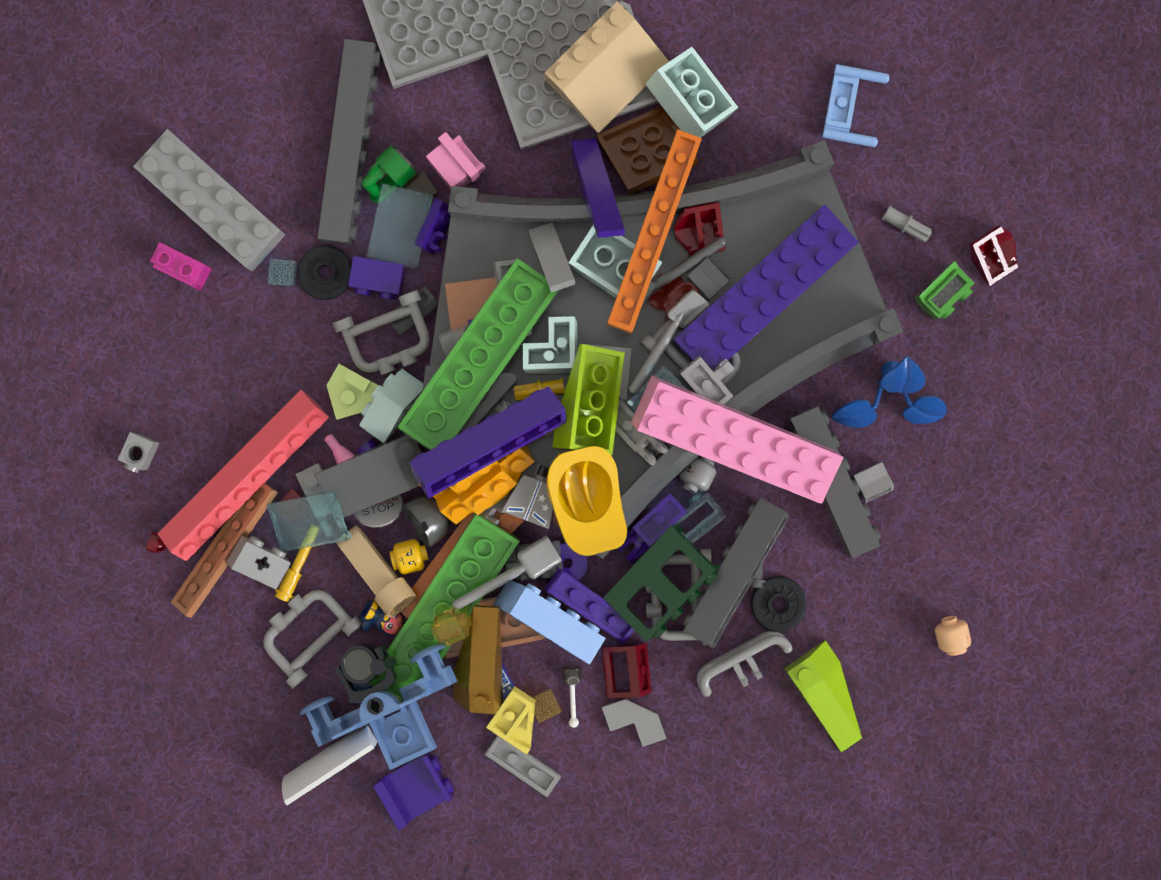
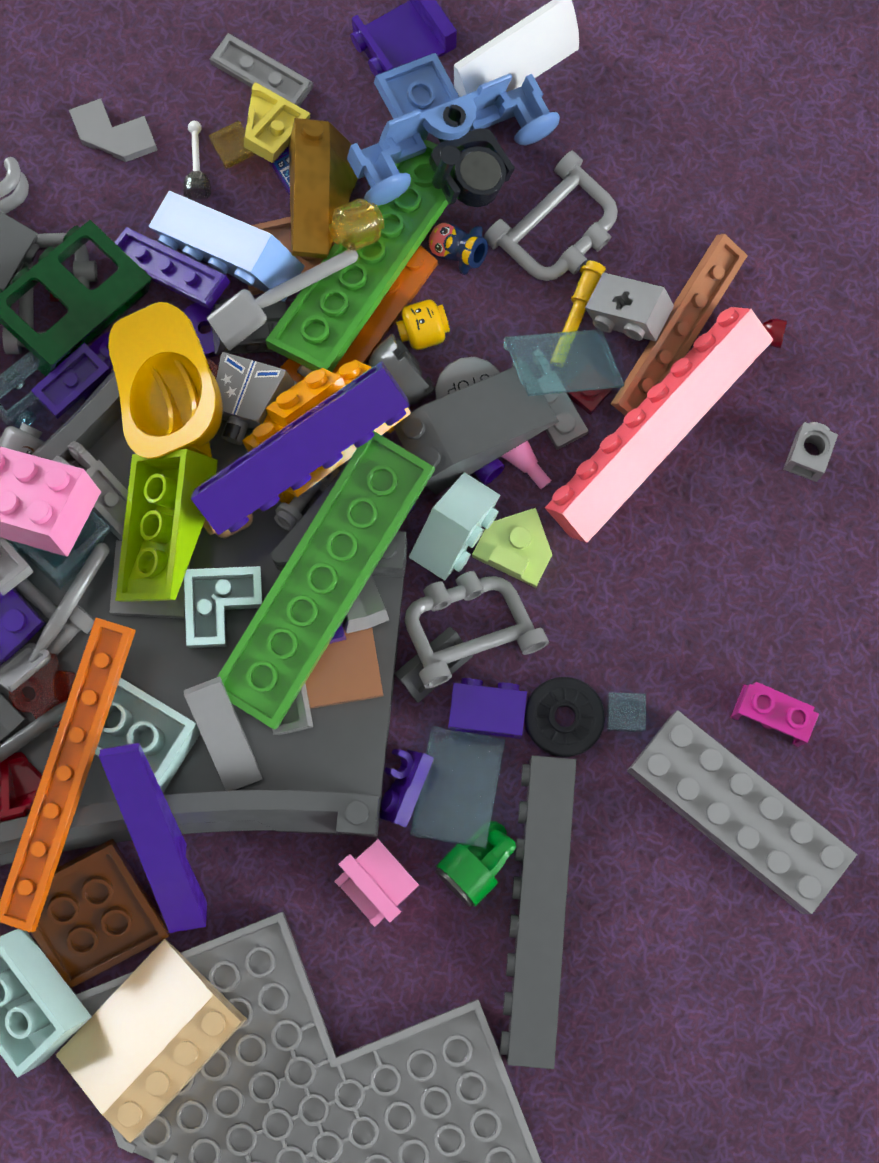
camera: 175 degrees right, 10 degrees down
(391, 592) = (466, 300): tan beam -> none
(421, 184) = (428, 851): dark brown tile -> none
(525, 390) = (240, 549): yellow axle -> none
(638, 670) = (105, 191): dark red tile -> none

